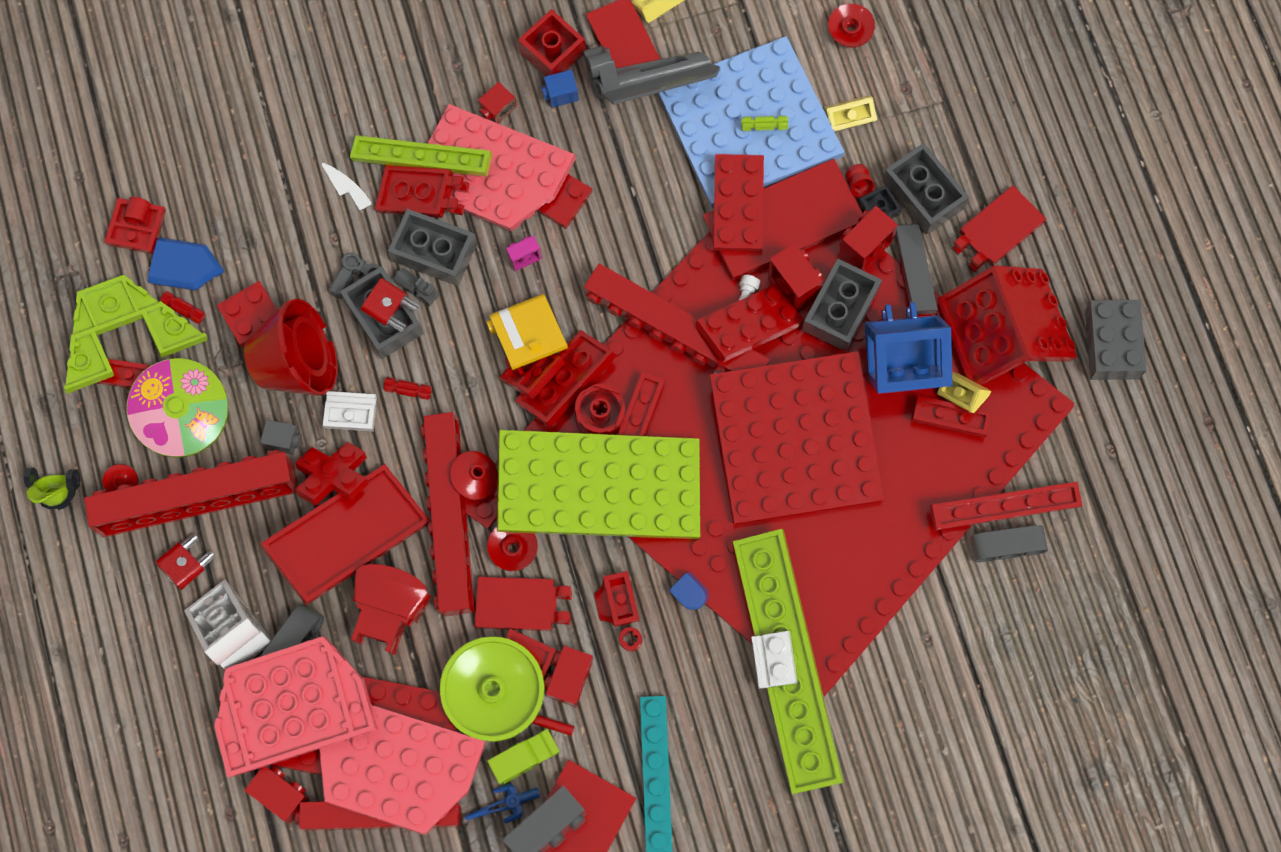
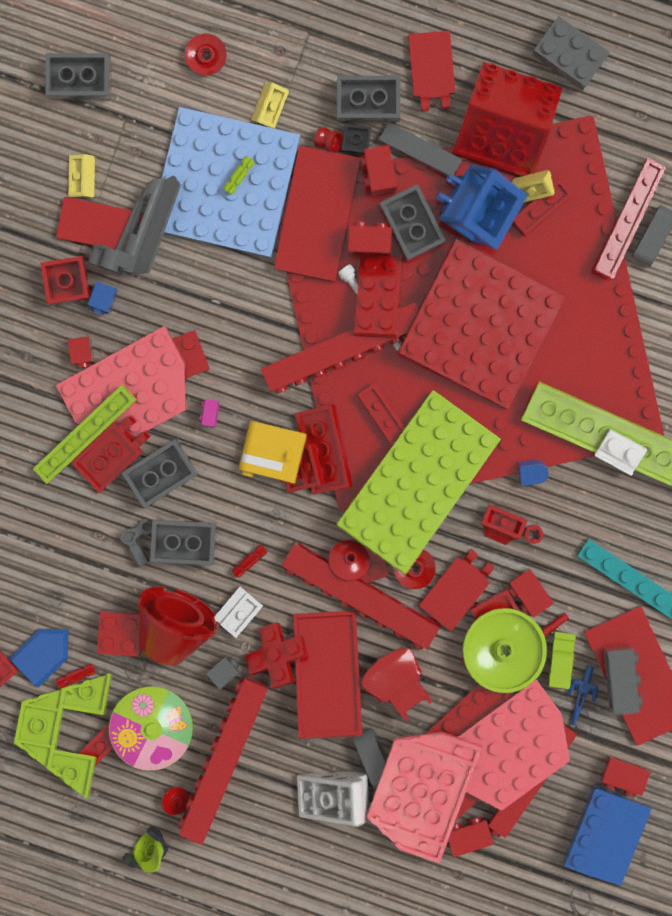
camera: 55 degrees left, 15 degrees up
(181, 565) = (265, 798): red piece -> none
(344, 184) = (63, 500): white sticker -> none
(385, 302) = (183, 537): red piece -> none
(416, 286) = (177, 504): dark grey bar -> none
(590, 402) = (378, 446): red brick -> none
(738, 202) = (285, 238): red plate -> none

